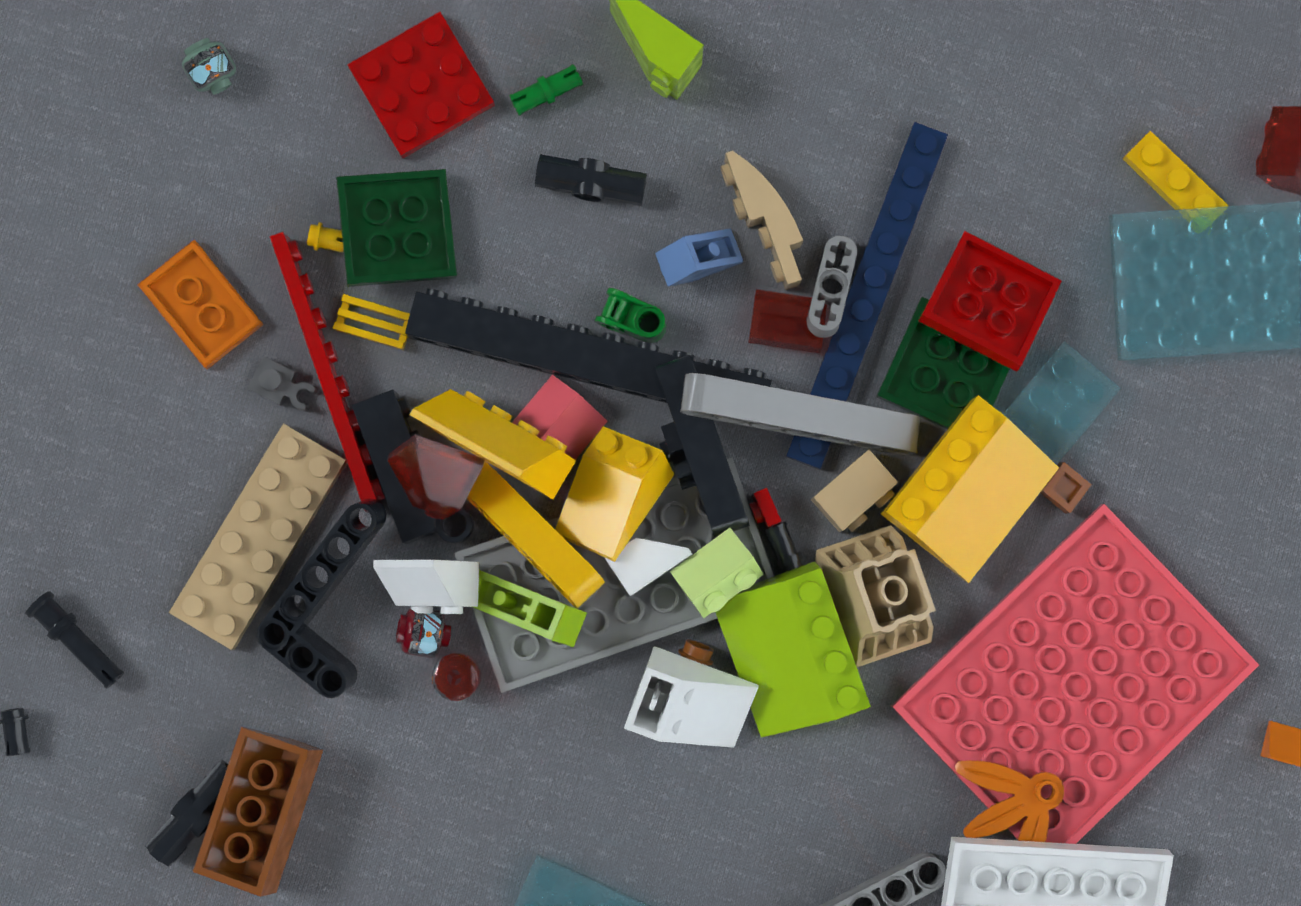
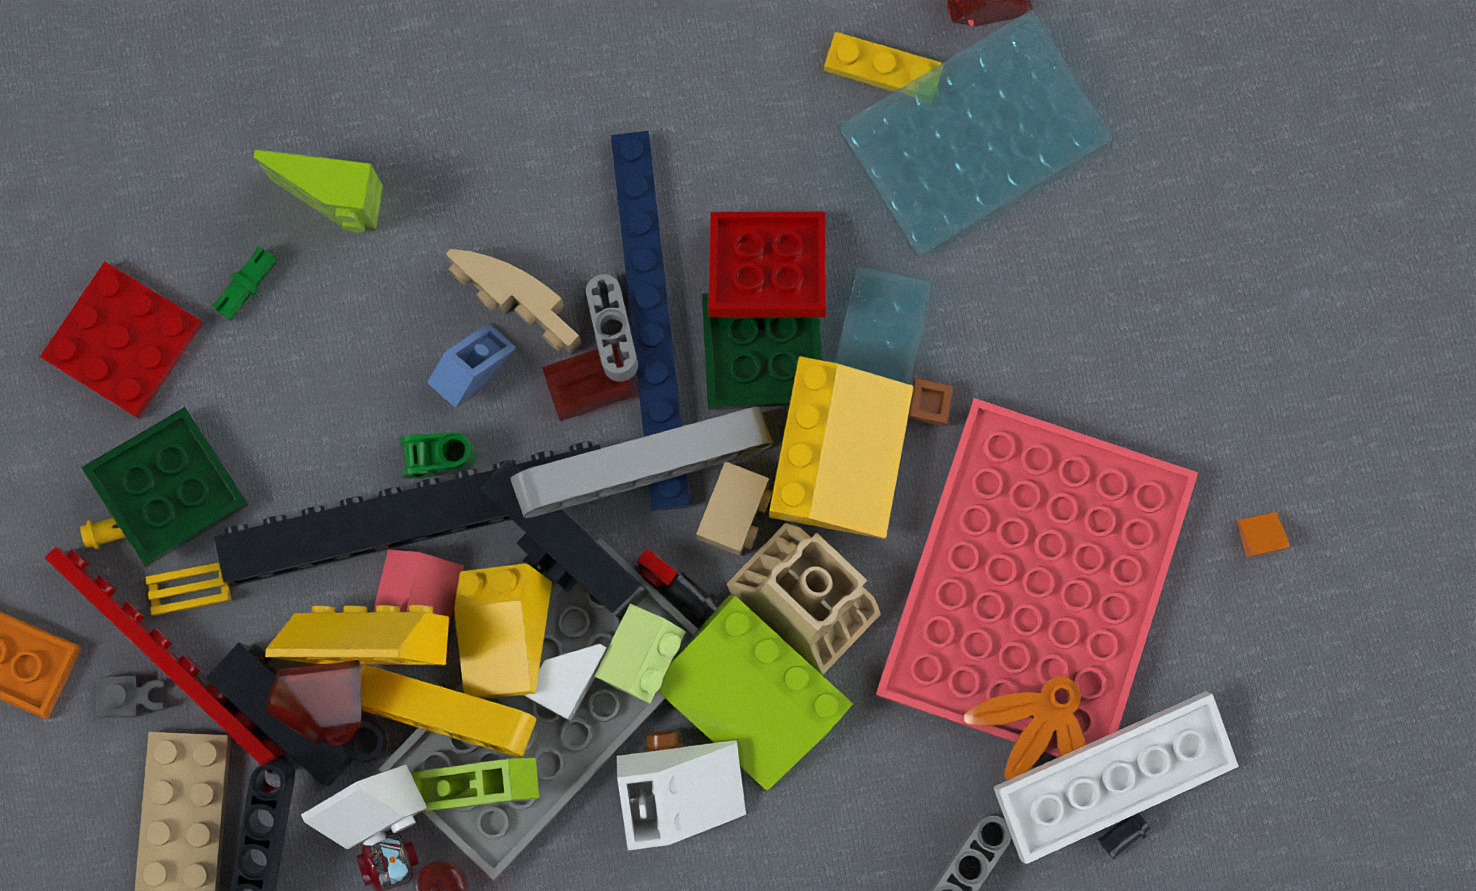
camera: 25 degrees left, 5 degrees down
(590, 180) = (330, 345): black piece -> none

